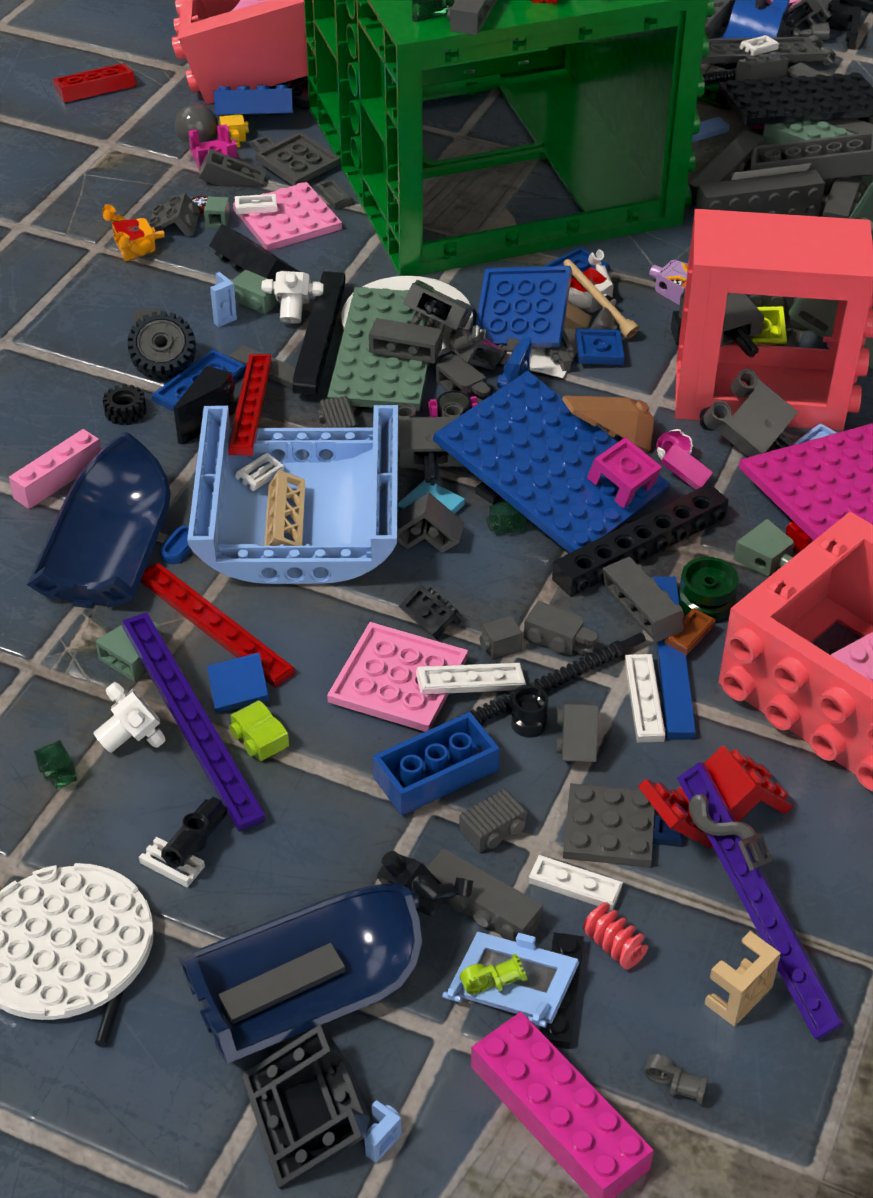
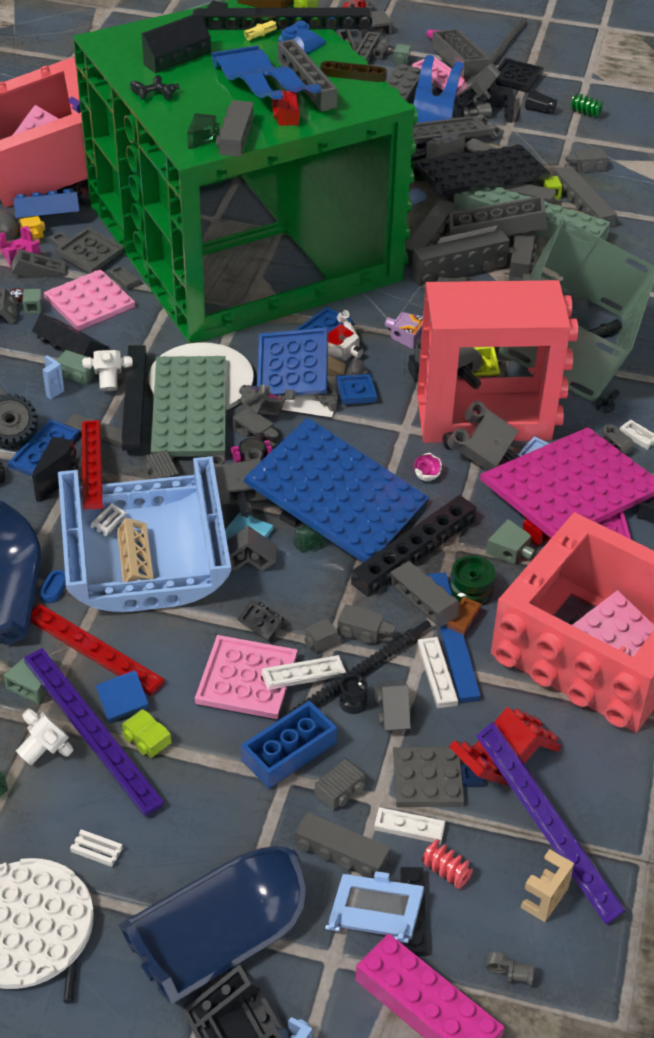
camera: 10 degrees left, 0 degrees up
(194, 832) = (111, 823): black piece -> none
(256, 204) = (63, 292): white tile -> none
(281, 983) = (200, 934): dark grey tile -> none
(405, 340) = (206, 399): dark grey brick -> none
(415, 876) = (291, 837): black torso -> none
(436, 307) = (227, 370): dark grey piece -> none
(480, 977) = (352, 910): lime connector -> none
(517, 364) = (295, 413): blue slope -> none
(616, 416) = (381, 447): medium nougat wedge -> none
(627, 326) = (376, 371): tan piece -> none
(627, 468) = (397, 490): dark pink panel -> none
(686, 467) = (439, 482): dark pink tile -> none
(700, 815) = (498, 763): dark grey piece -> none
(759, 45) = (440, 127): white tile -> none

